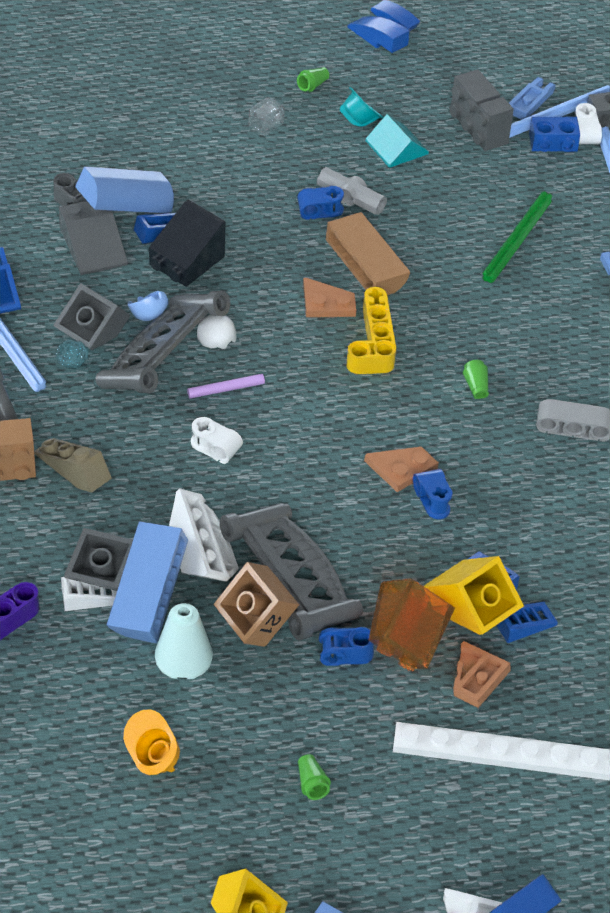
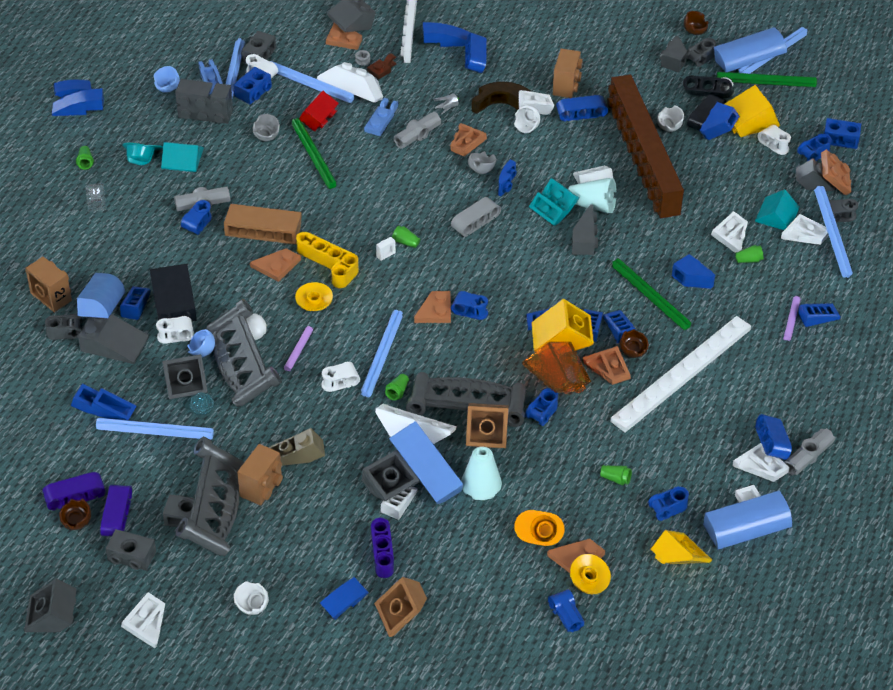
camera: 50 degrees left, 0 degrees up
(60, 838) = (565, 607): none -> blue piece
(109, 142) = (48, 284): none -> medium nougat brick
(126, 820) = (594, 567): none -> yellow dish
(150, 274) = (176, 328): none -> white piece
(153, 810) = (567, 554): none -> nougat wing
(249, 497) = (397, 387): none -> bright green cone
(287, 457) = (381, 353): none -> light blue axle
(307, 353) = (314, 296): none -> yellow dish
(309, 856) = (669, 502): none -> blue piece
(439, 371) = (385, 248): none -> white plate
(488, 65) = (166, 79): none -> light blue hair
(504, 178) = (266, 127): none -> light grey hair
(532, 677) = (634, 344): none -> reddish brown hair
(545, 664) = (614, 327): none -> blue slope
(576, 203) = (318, 111): none -> red brick

